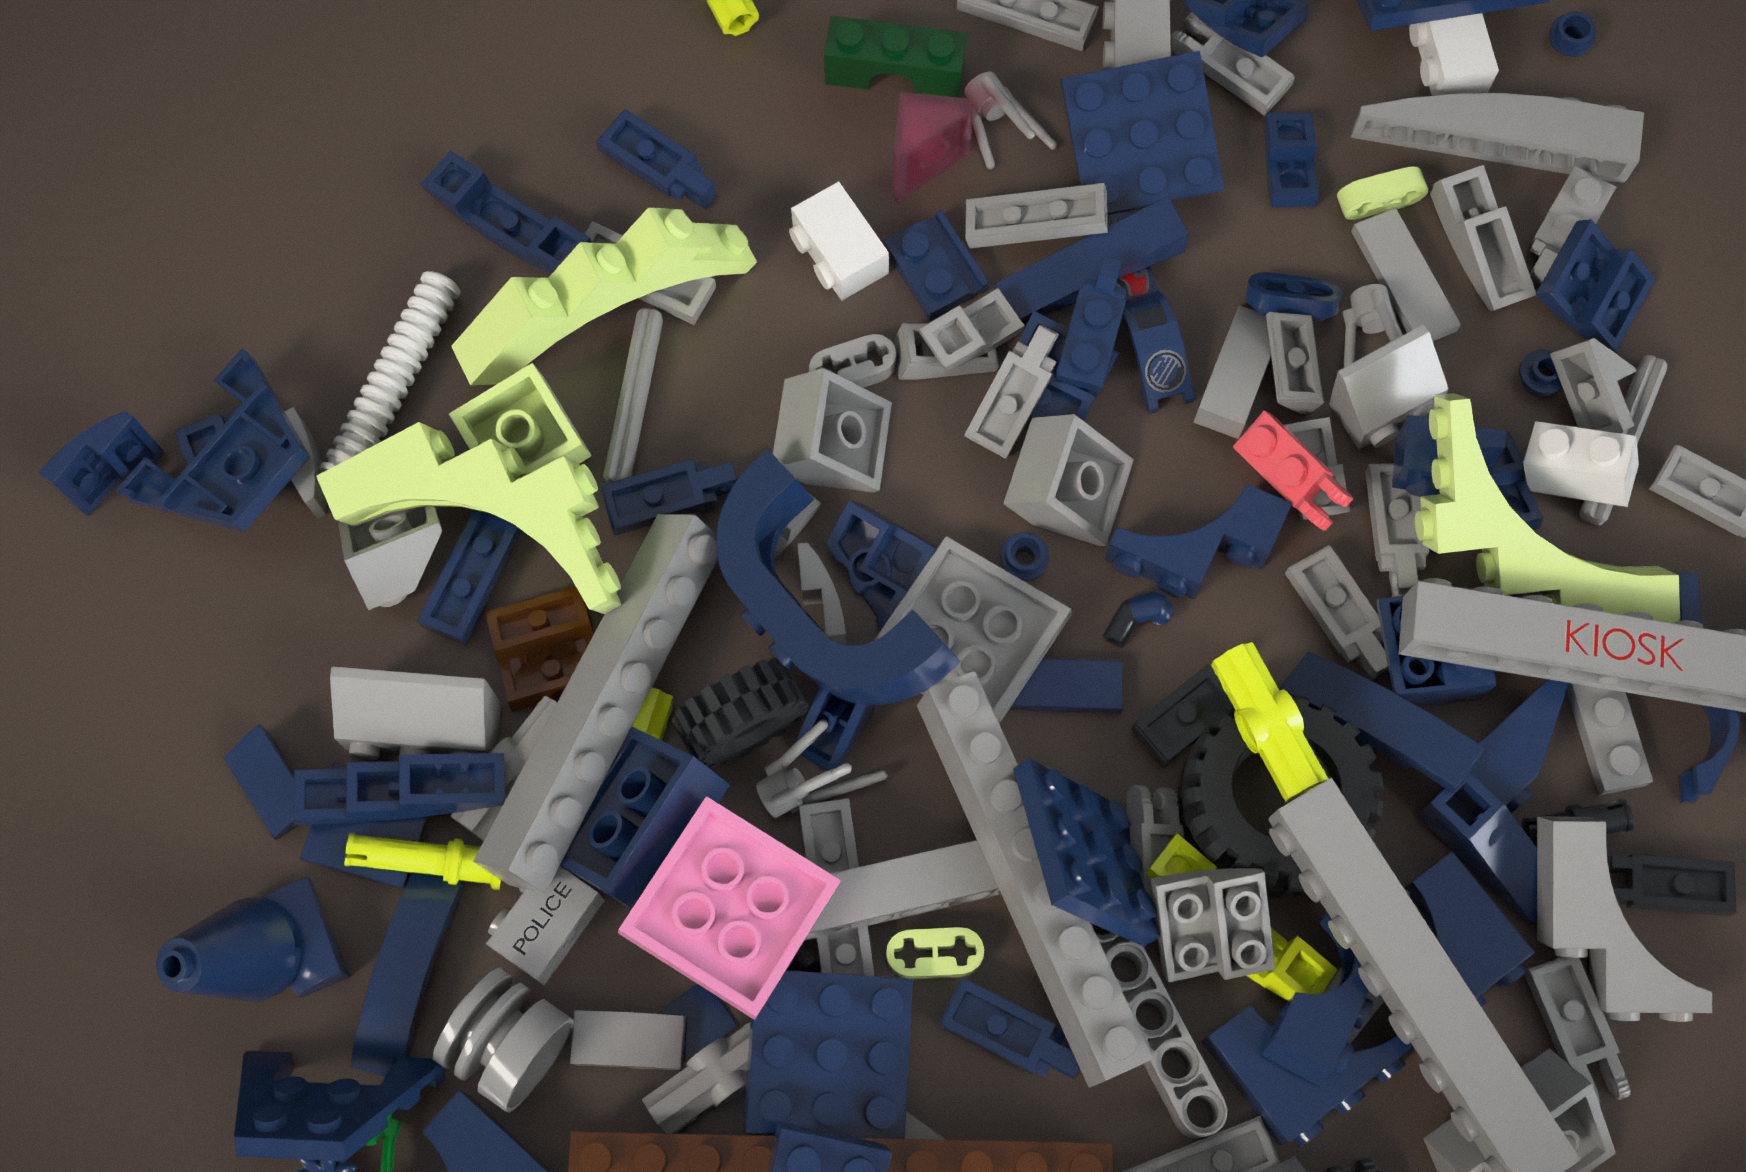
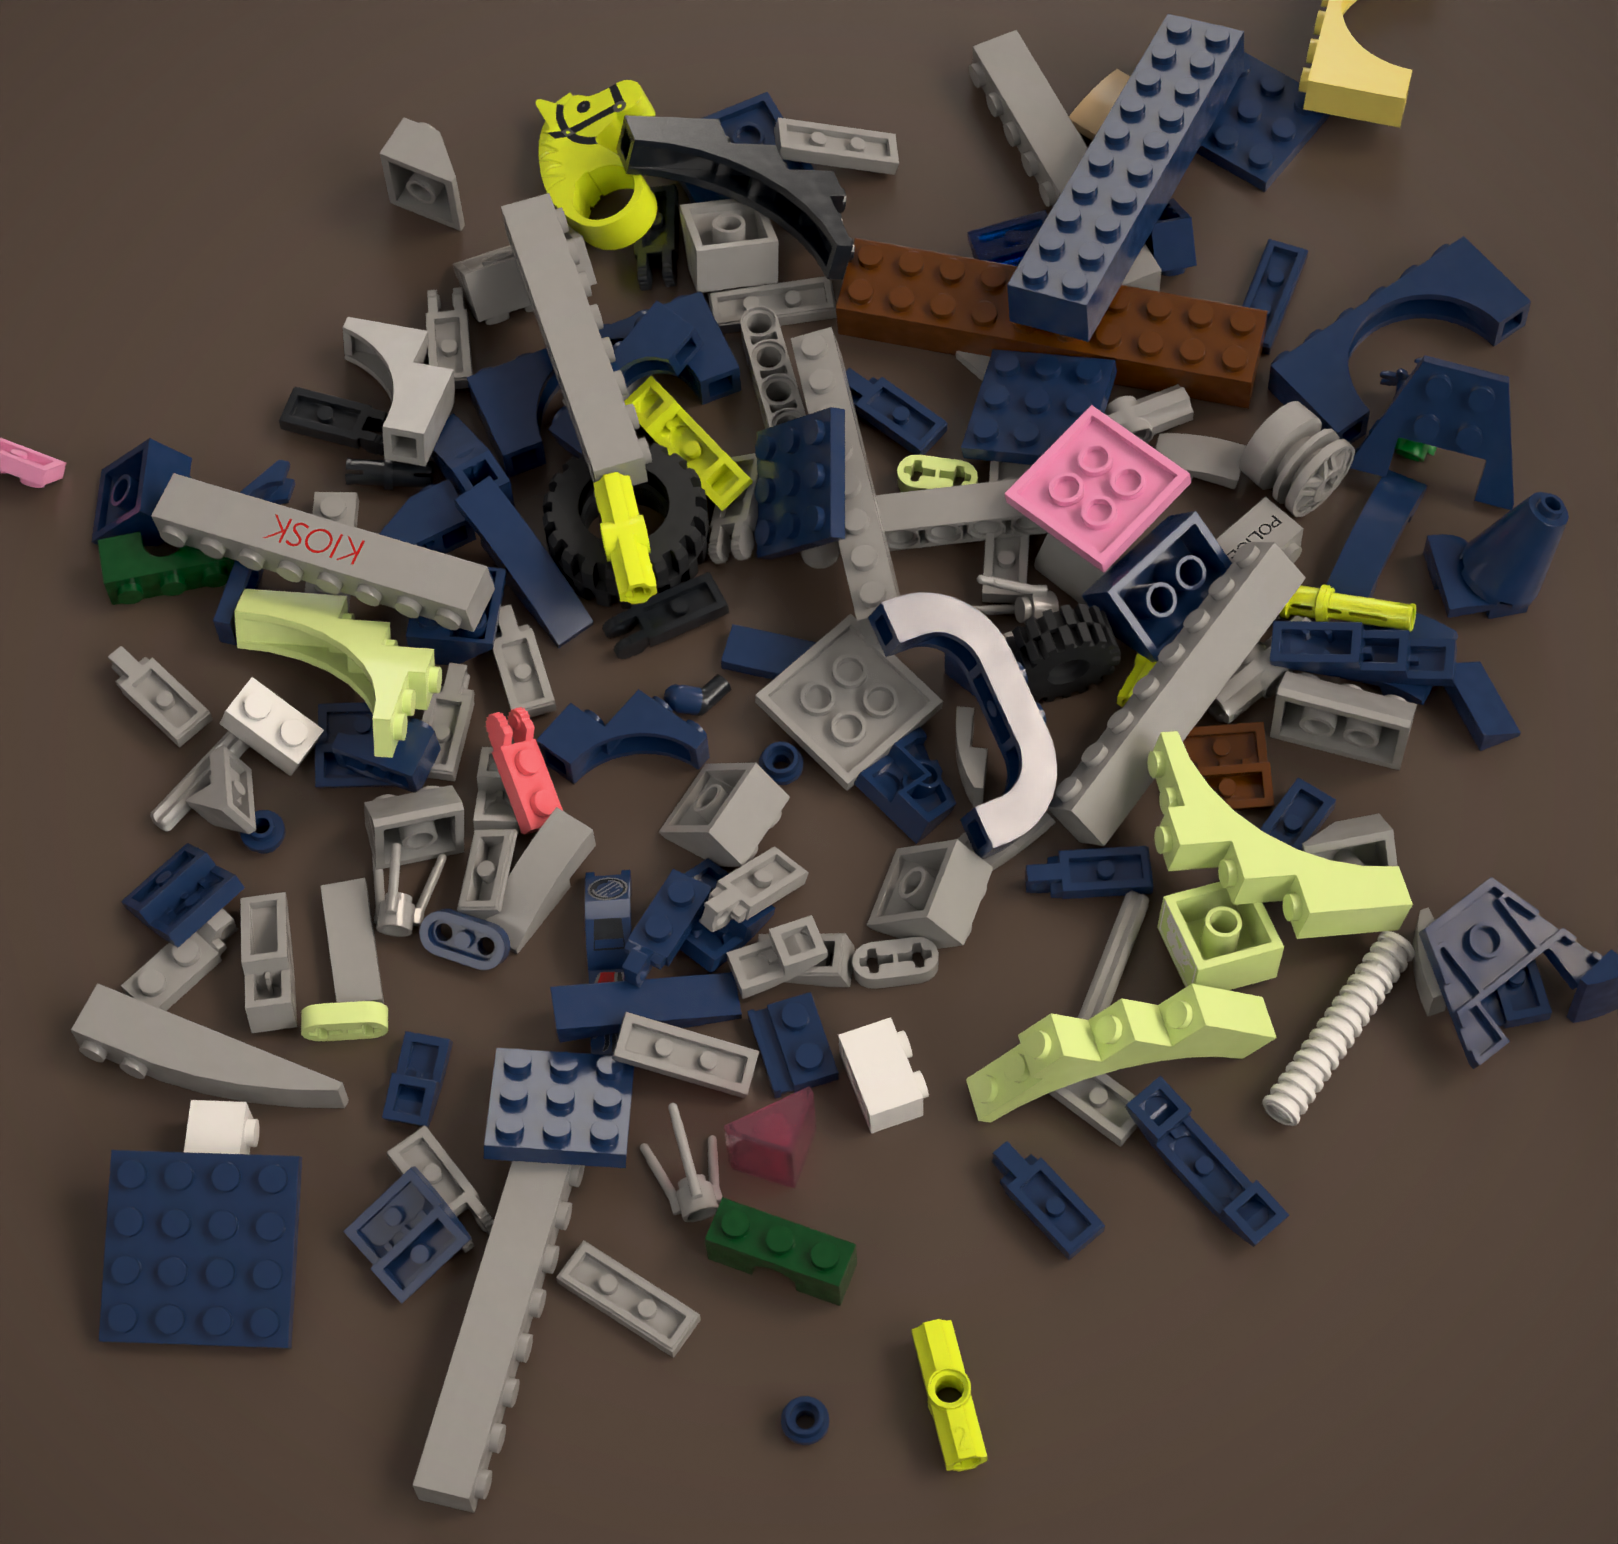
camera: 165 degrees left, 10 degrees down
(1213, 923) = (711, 437): light grey slope -> none
(1575, 24) = (86, 1141): dark blue plate -> none

